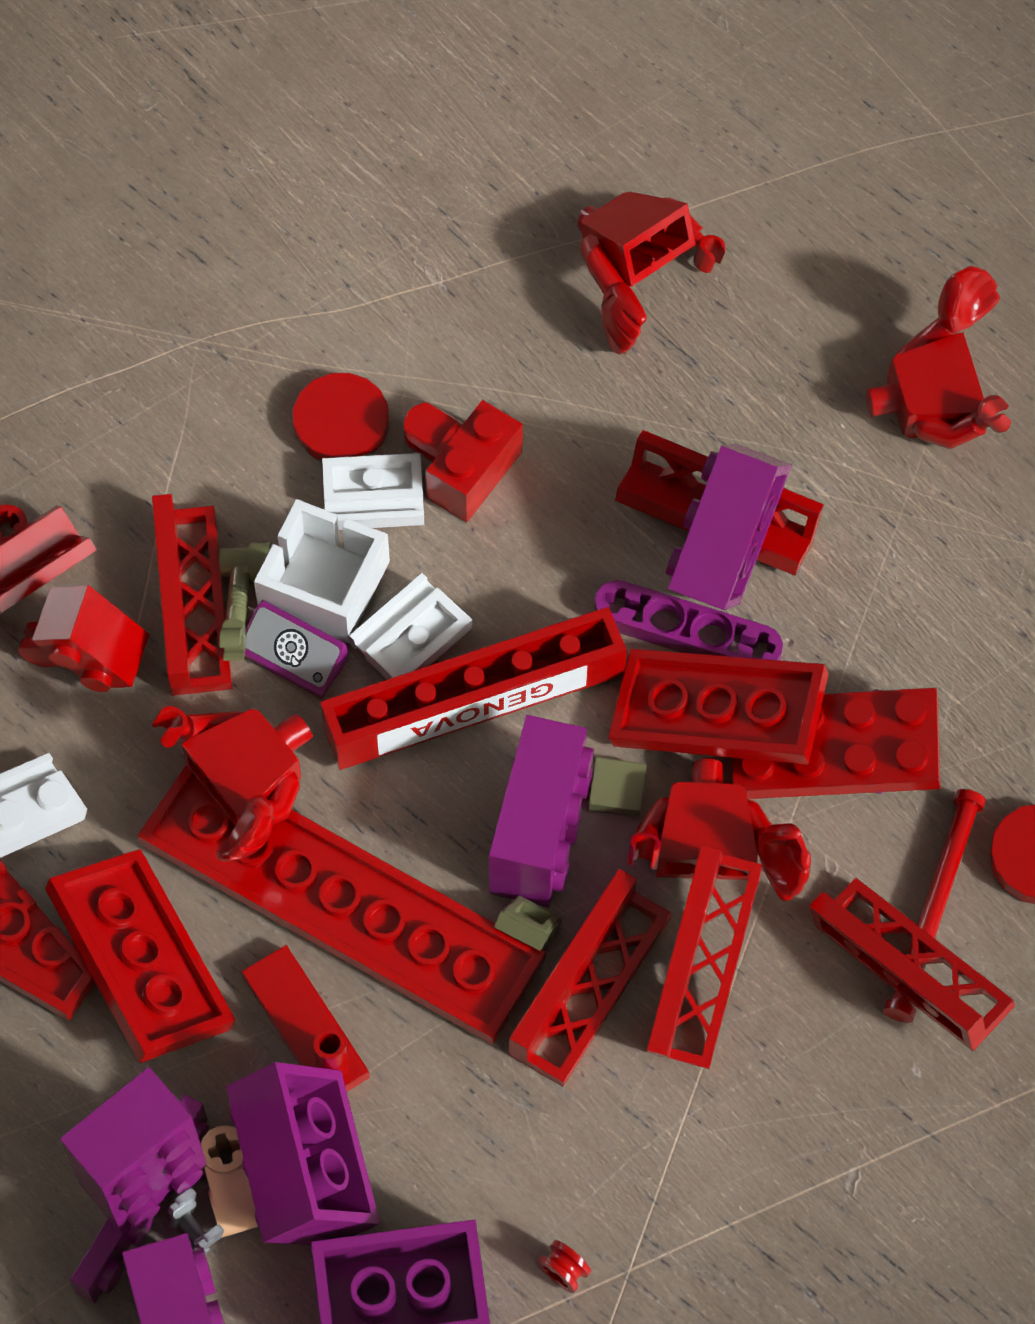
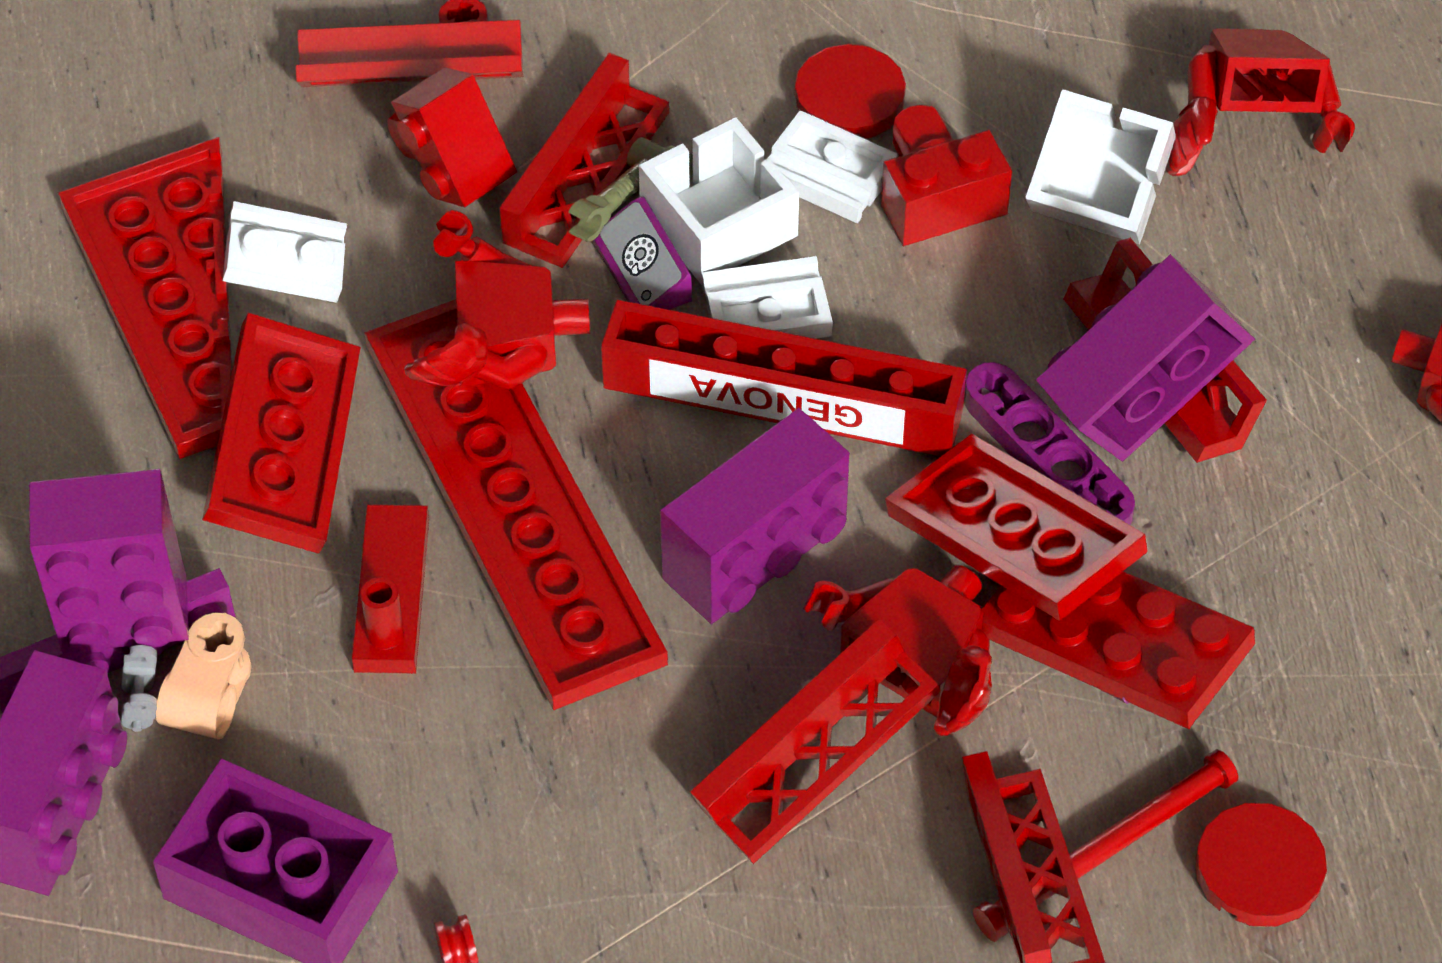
camera: 35 degrees right, 10 degrees down
(301, 1154) = (280, 678): magenta brick -> none
(528, 922) = (673, 618): olive tile -> none
(570, 971) = (675, 688): red fence -> none
(577, 384) = (1100, 172): none -> white piece
(617, 787) = (862, 552): olive tile -> none

